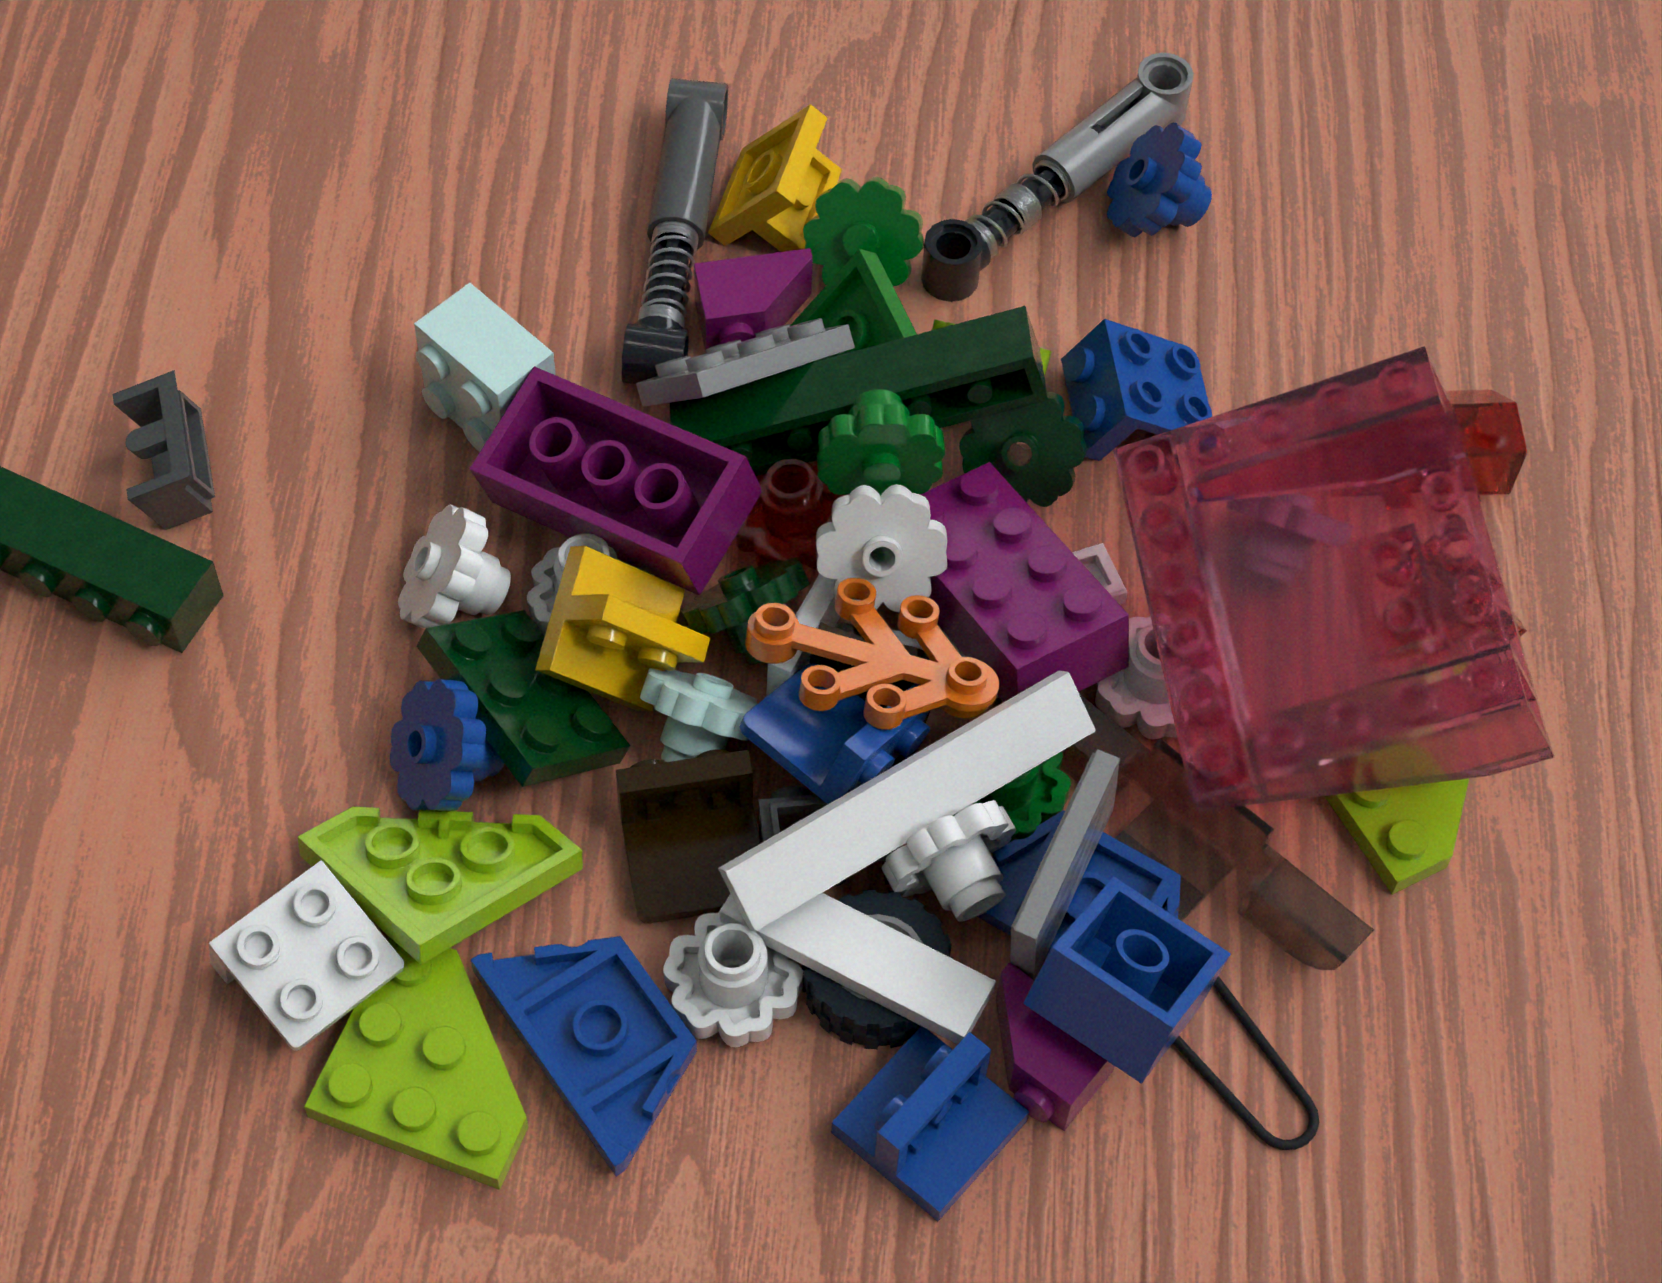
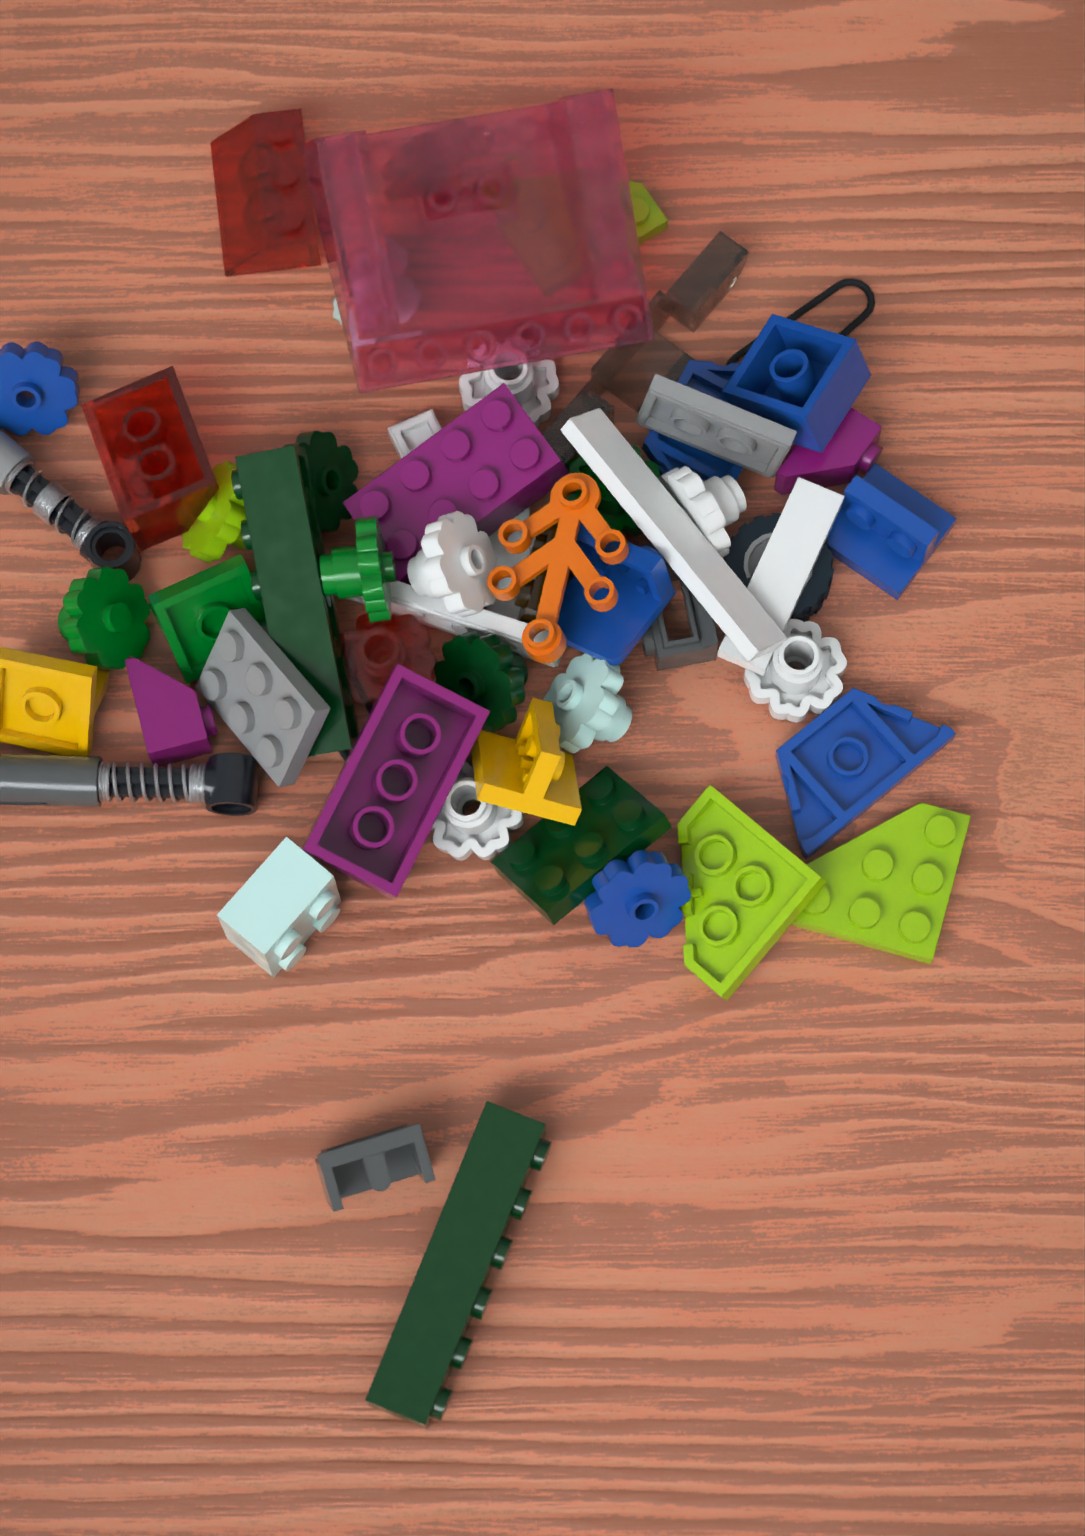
camera: 90 degrees left, 15 degrees up
(306, 956) = (819, 974): white bracket -> none
(452, 571) = (473, 918): white plant -> none
(683, 826) = (688, 709): dark brown bracket -> none
(1054, 267) = (152, 457): none -> clear red slope
(1129, 382) = (241, 403): blue bracket -> none

